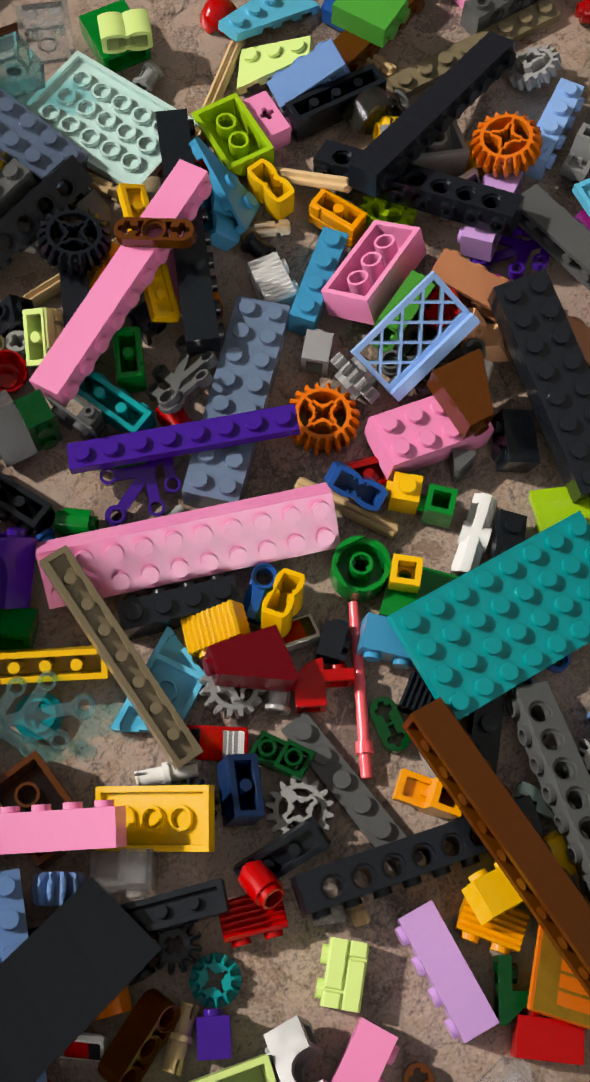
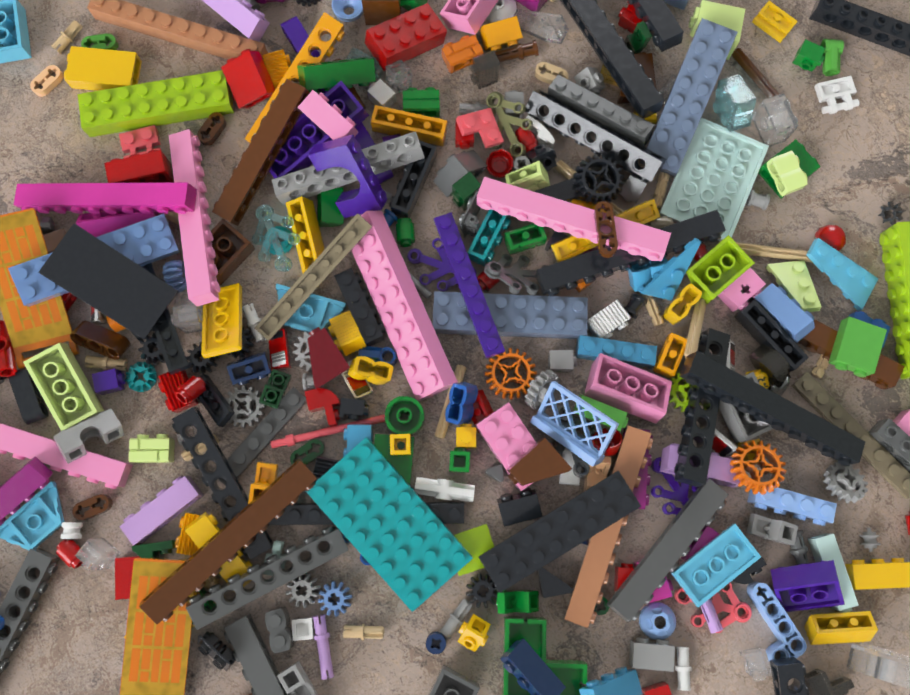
camera: 80 degrees right, 10 degrees up
(200, 859) = (196, 364): none -> black gear

